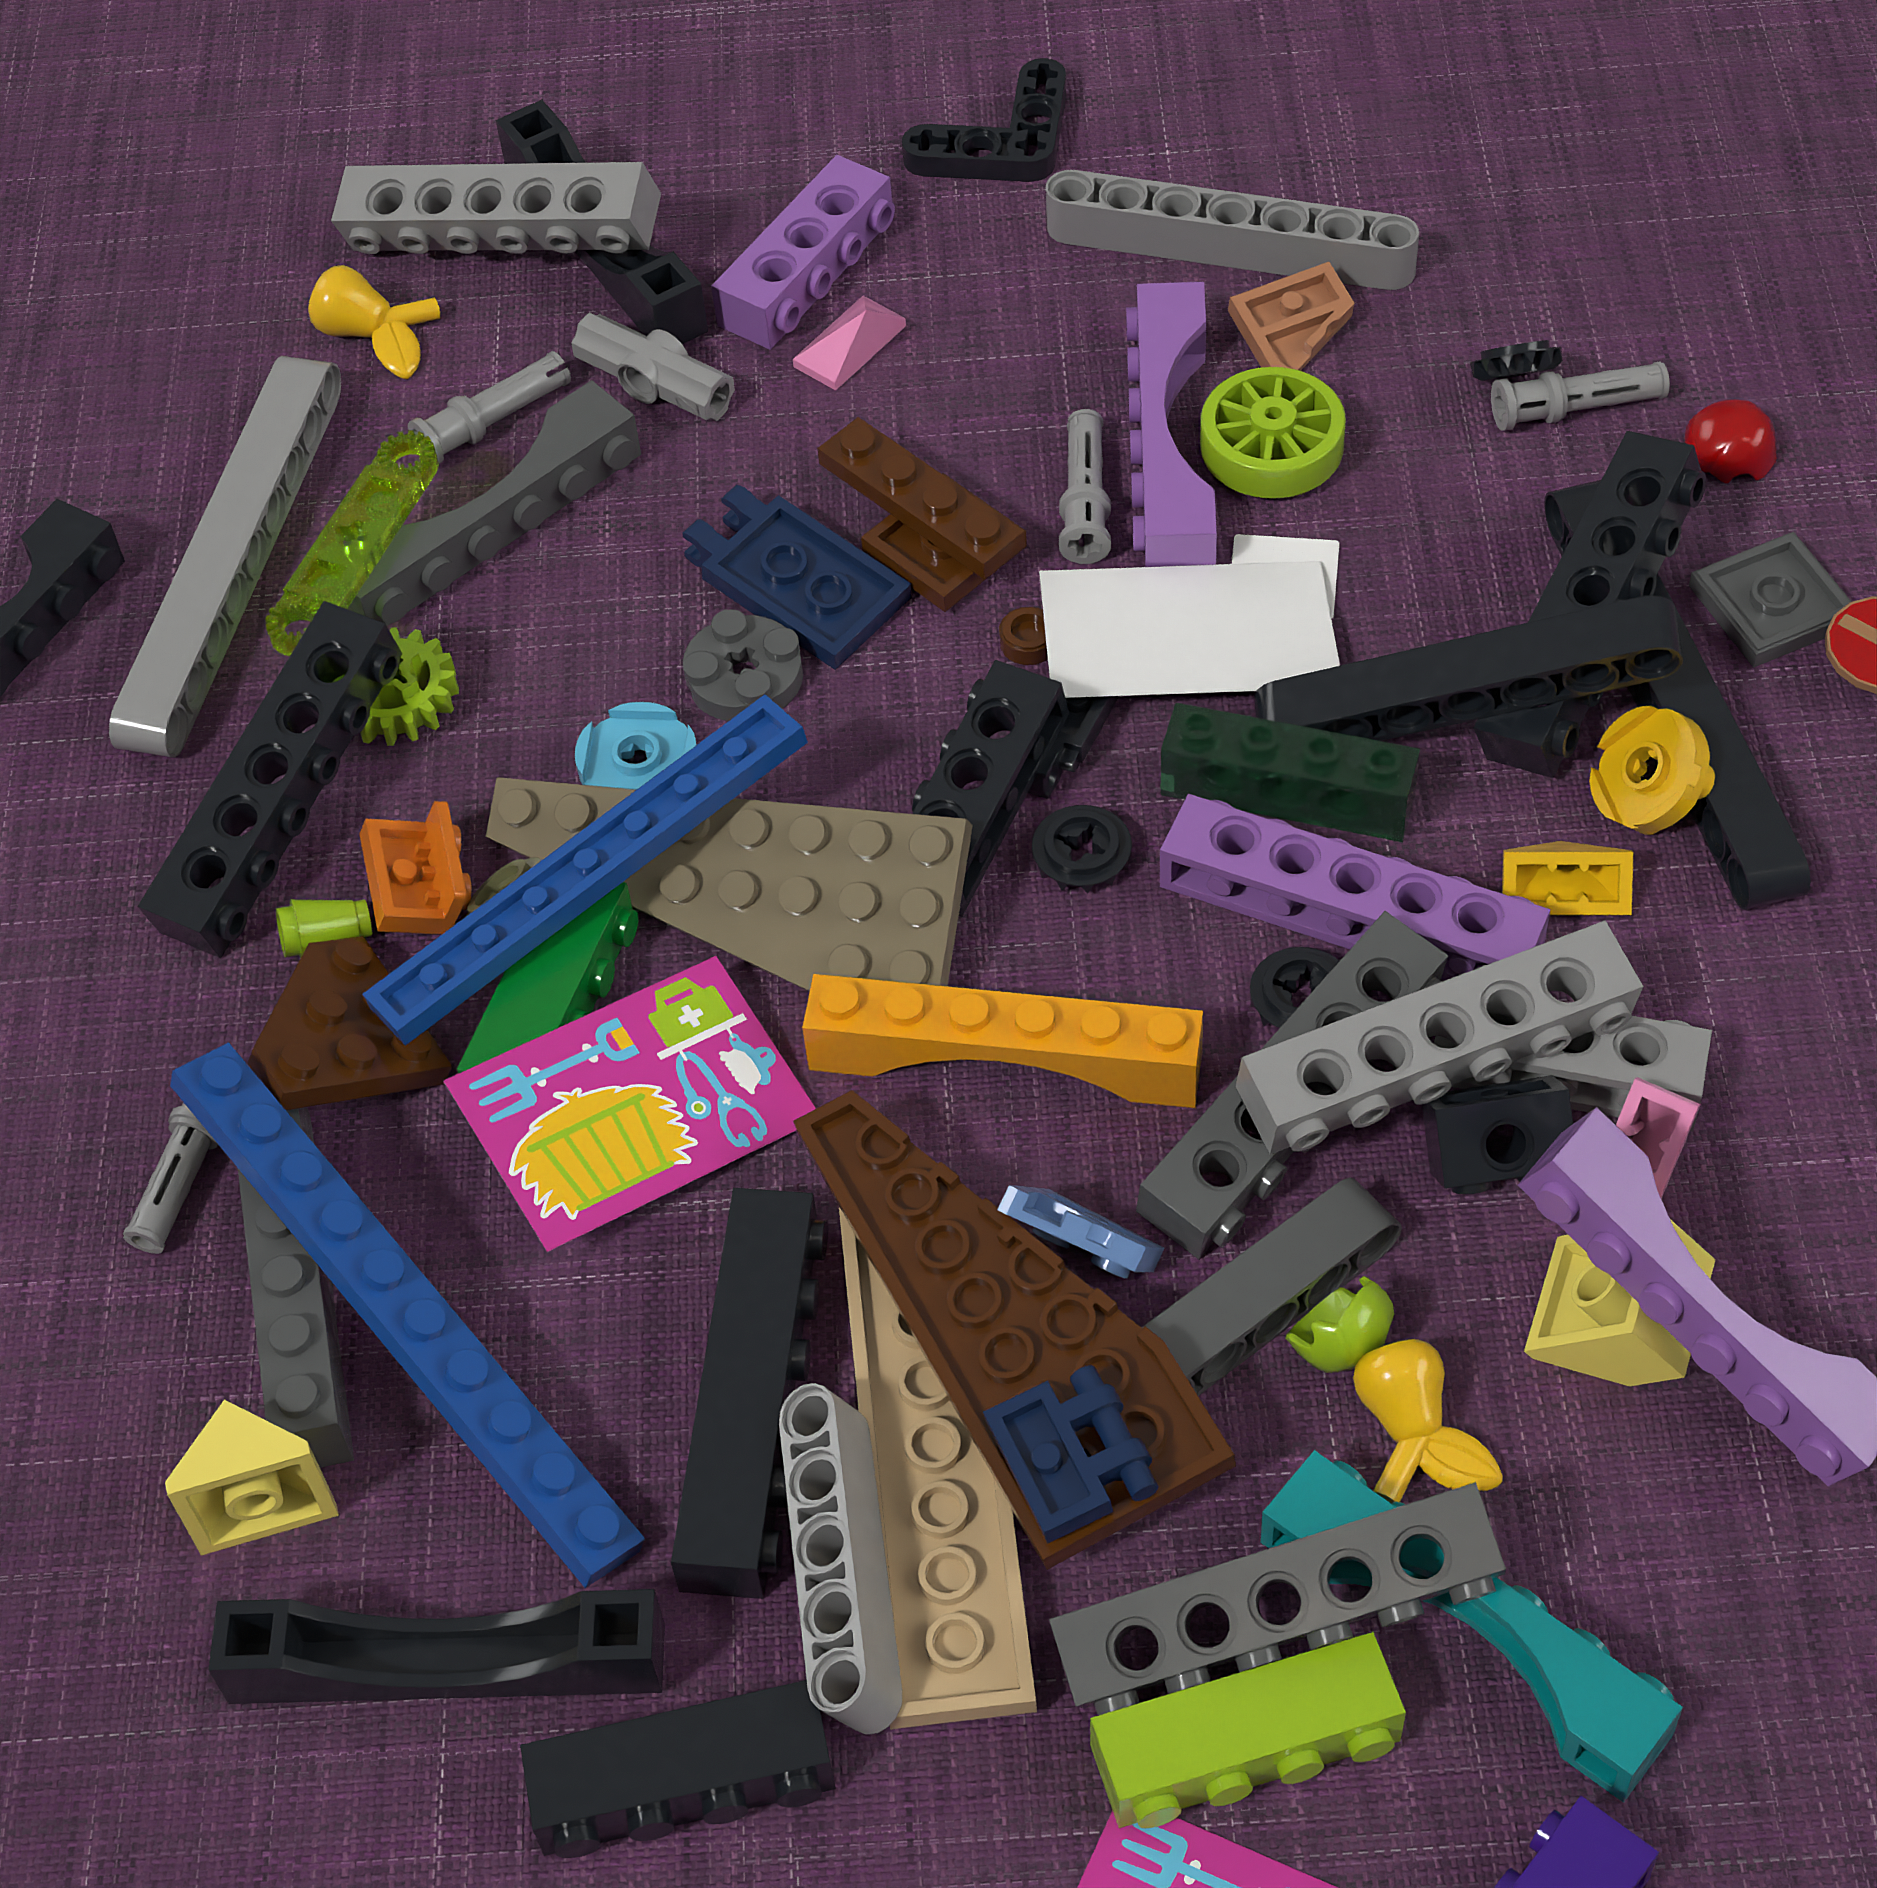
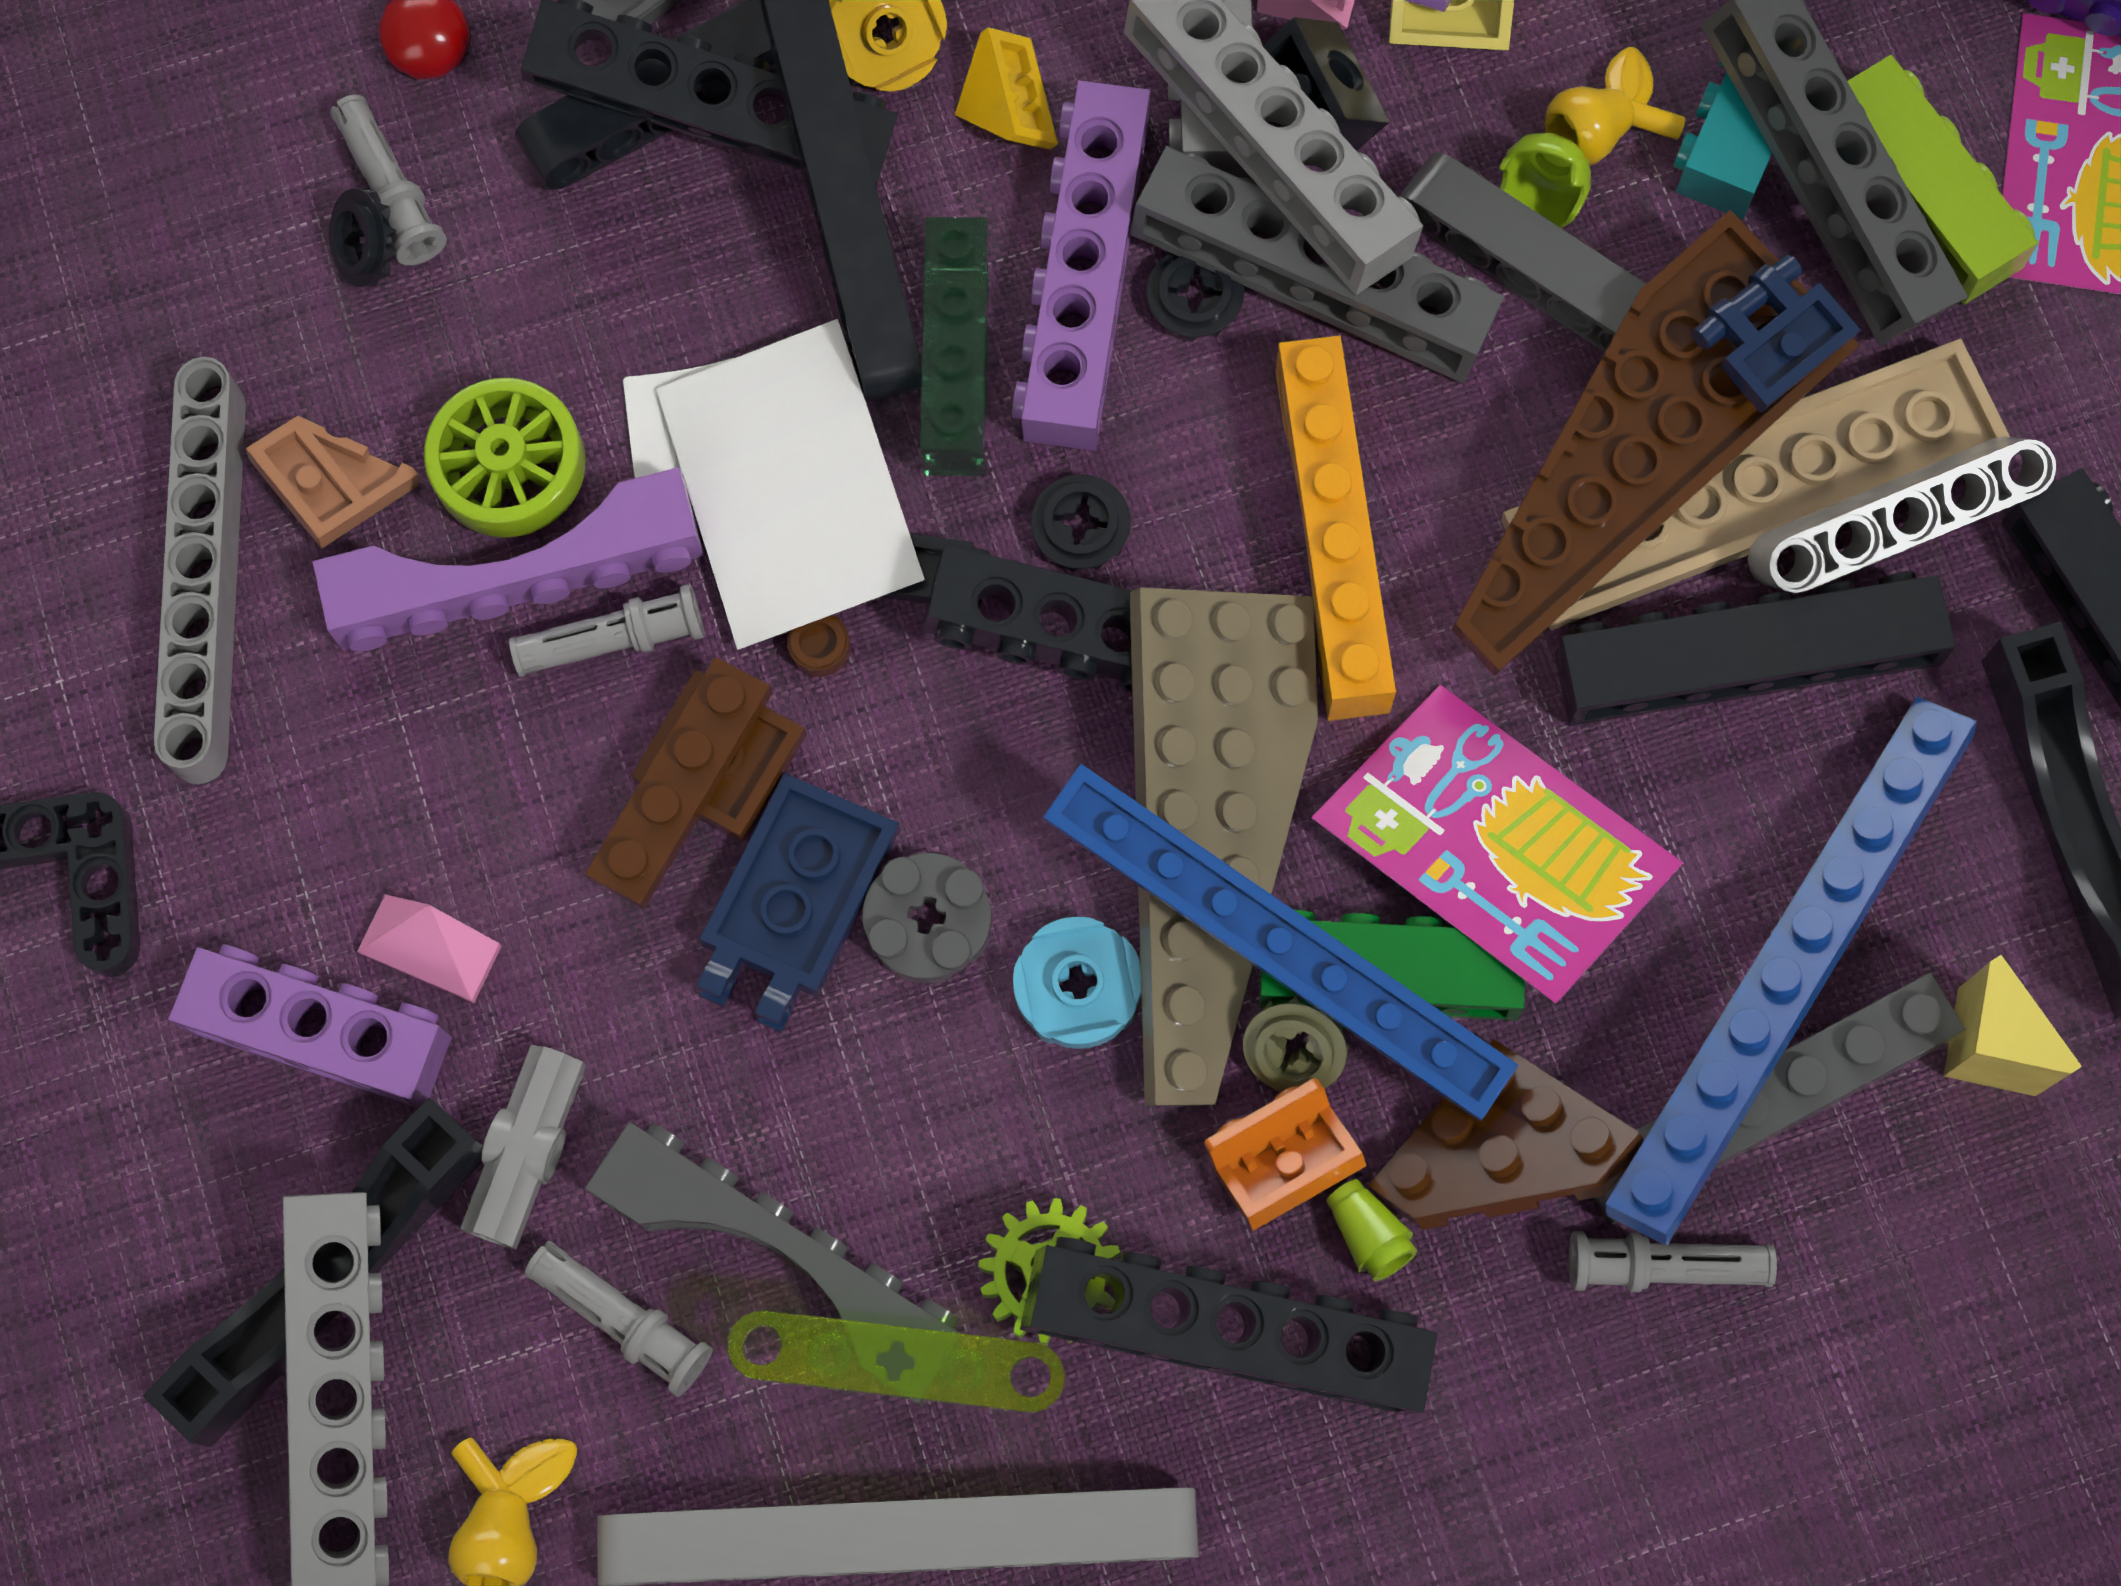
camera: 105 degrees left, 20 degrees up
(1070, 1223) = (1518, 408): medium blue wing -> none

